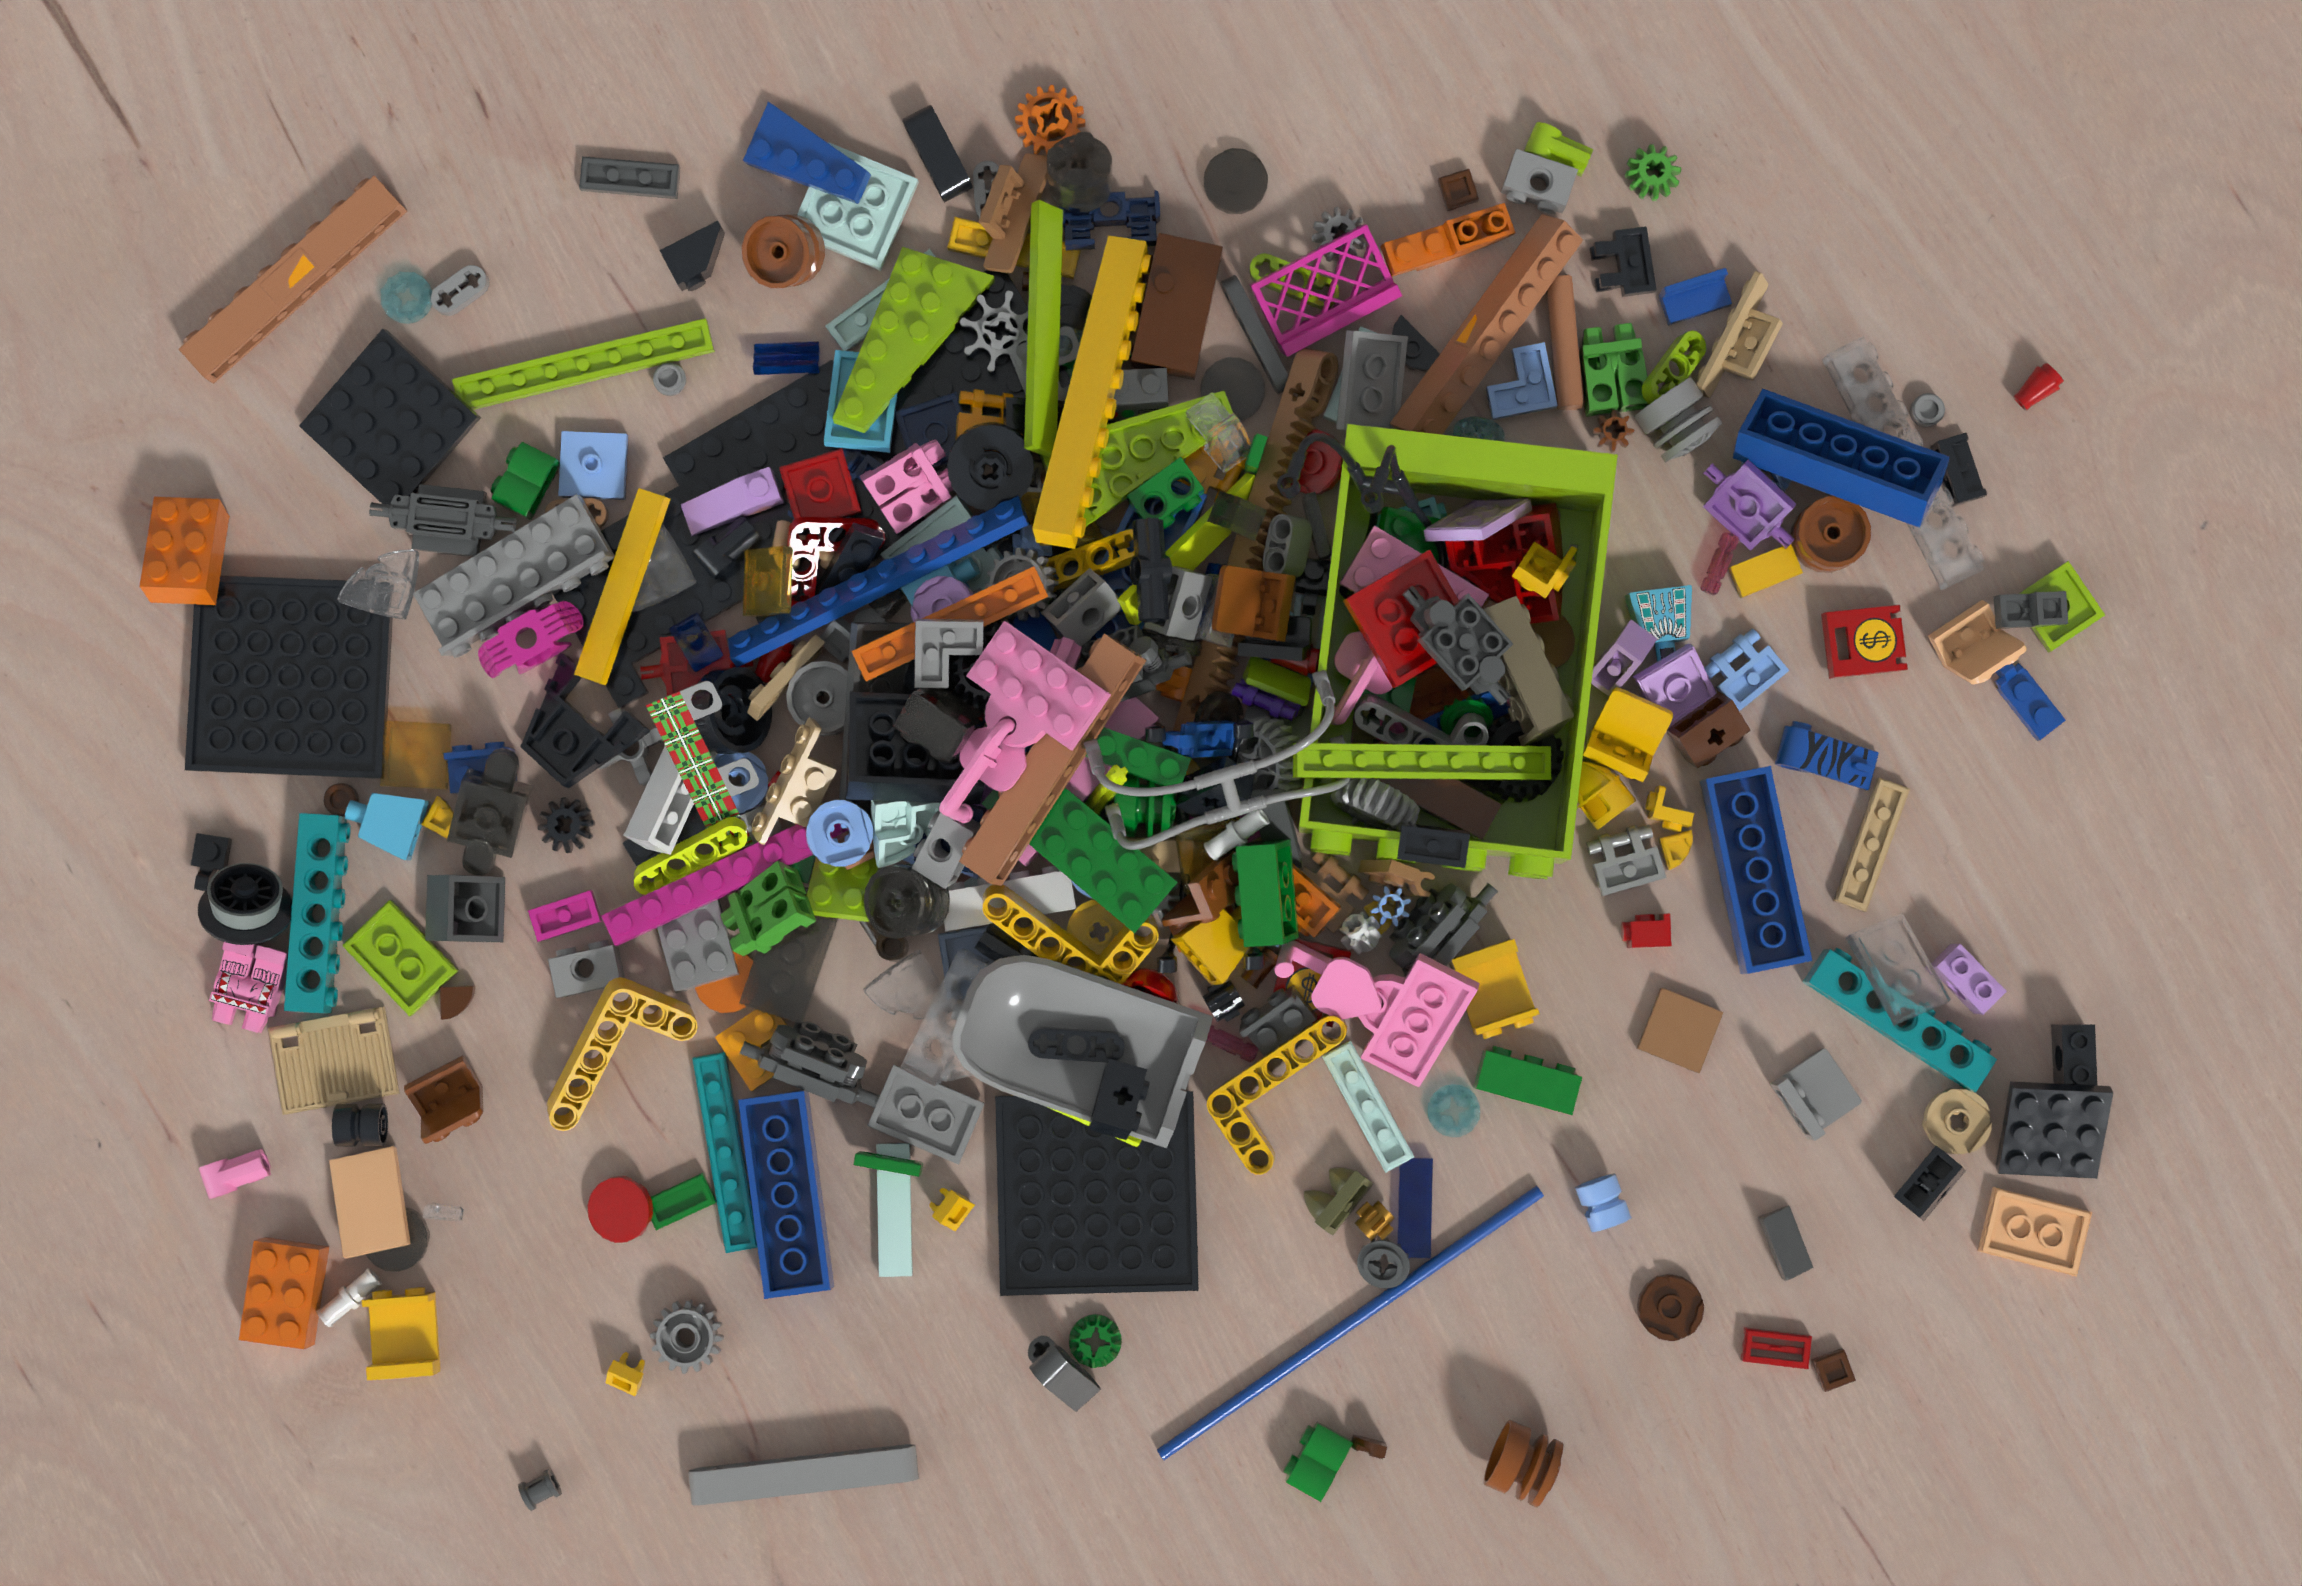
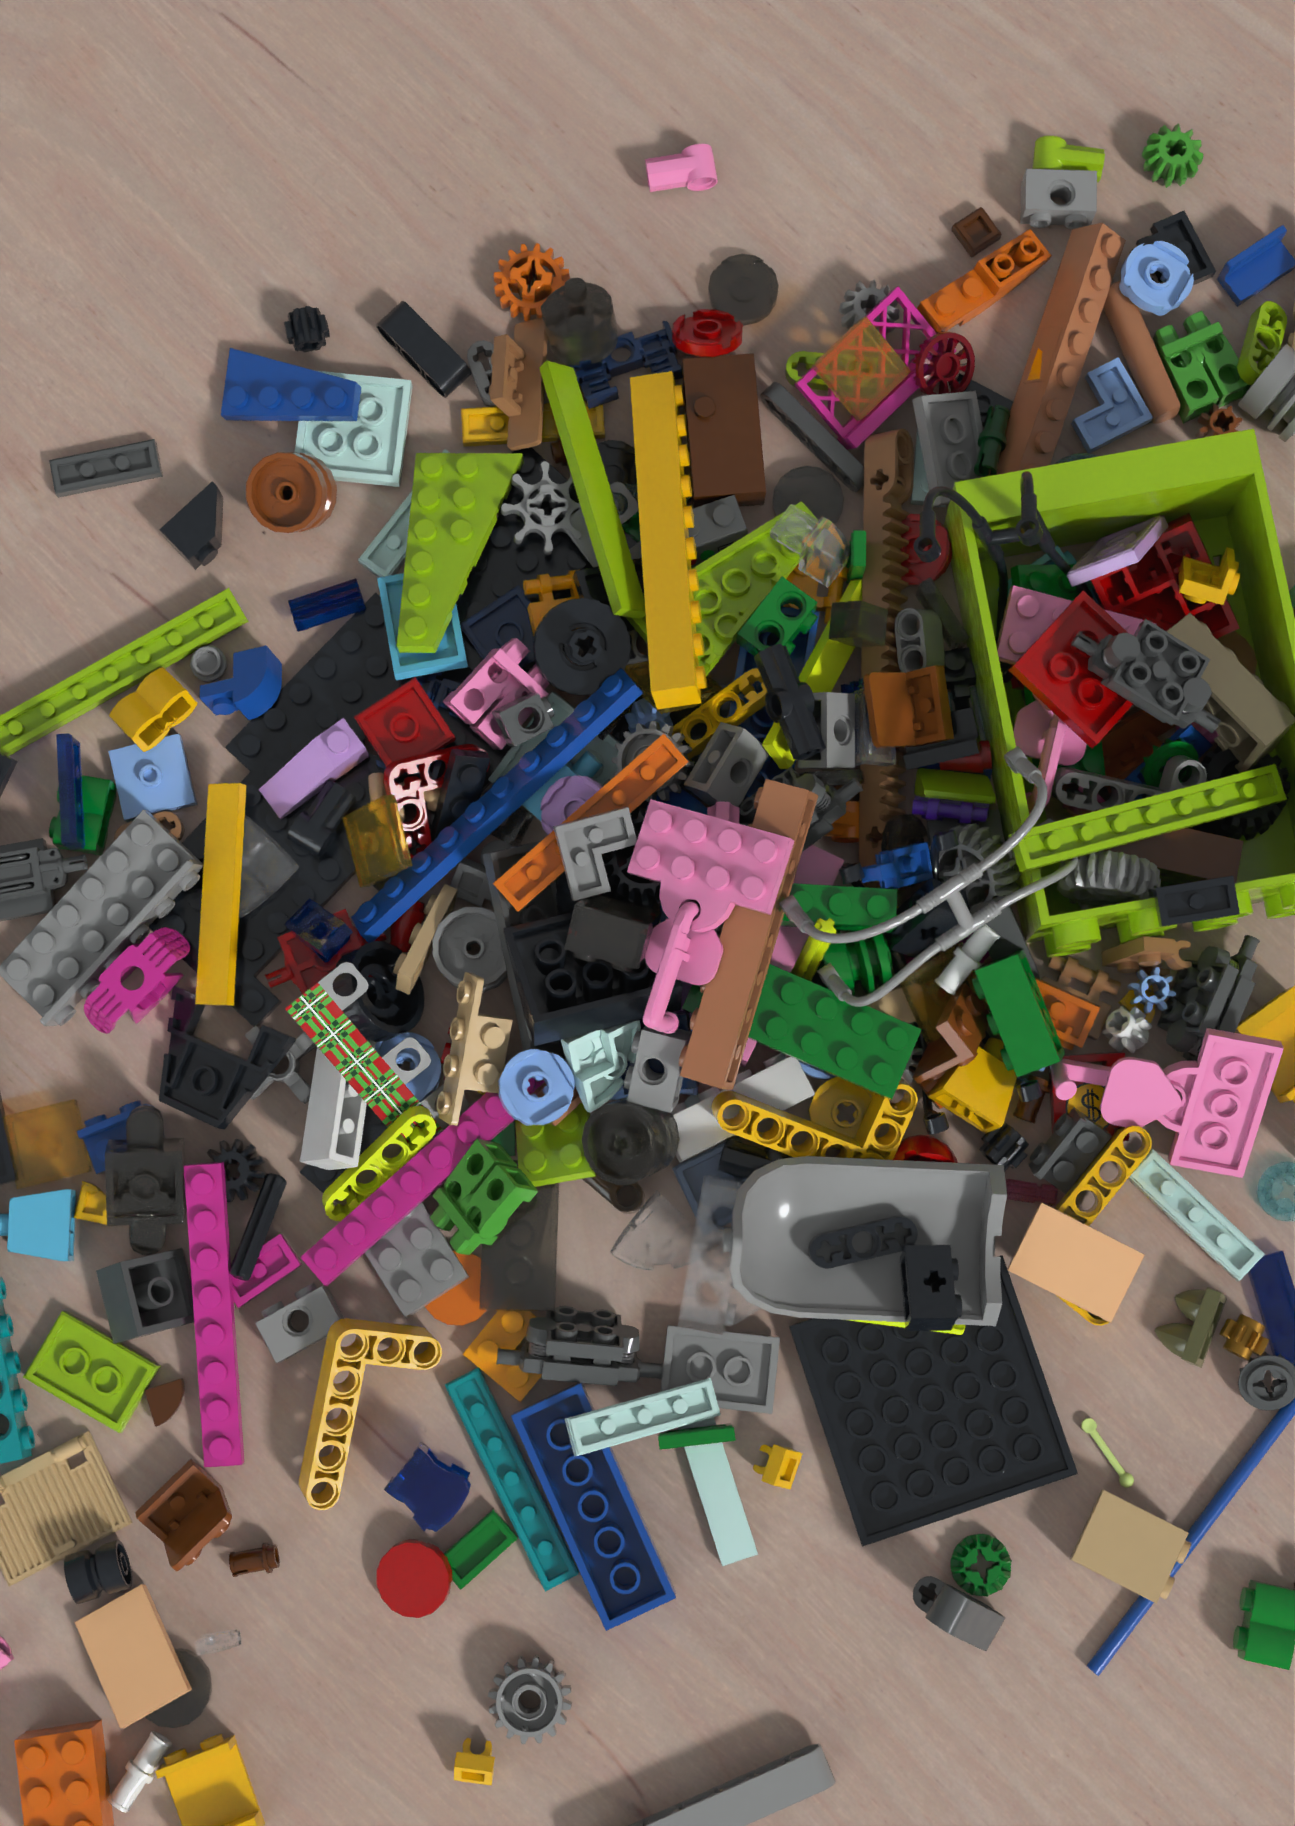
camera: 20 degrees left, 5 degrees down
(492, 1154) = (254, 1560): none -> reddish brown pin
(515, 940) = (214, 1314): none -> dark pink plate
(518, 460) = (70, 792): none -> clear blue tile
(573, 879) = (257, 1227): none -> black axle
(610, 406) = (153, 709): none -> yellow brick
(654, 1139) = (430, 1488): none -> clear blue piece
(701, 413) = (253, 686): none -> blue brick
(840, 105) = (306, 329): none -> black gear
(847, 1134) = (642, 1417): none -> light aqua tile
(909, 507) = (508, 718): none -> dark grey brick
(1189, 214) = (707, 333): none -> red tile
(1222, 57) = (690, 168): none -> bright pink piece
(1222, 1254) = (1089, 1426): none -> yellowish green hinge
(1222, 1363) = (1131, 1547): none -> tan brick
(1249, 1115) = (1075, 1262): none -> light nougat tile
(1311, 288) = (861, 368): none -> clear yellow plate
(1386, 306) = (944, 364): none -> dark red wheel
(1407, 386) = (992, 441): none -> dark green pin
(1579, 282) = (1146, 293): none -> light blue plate

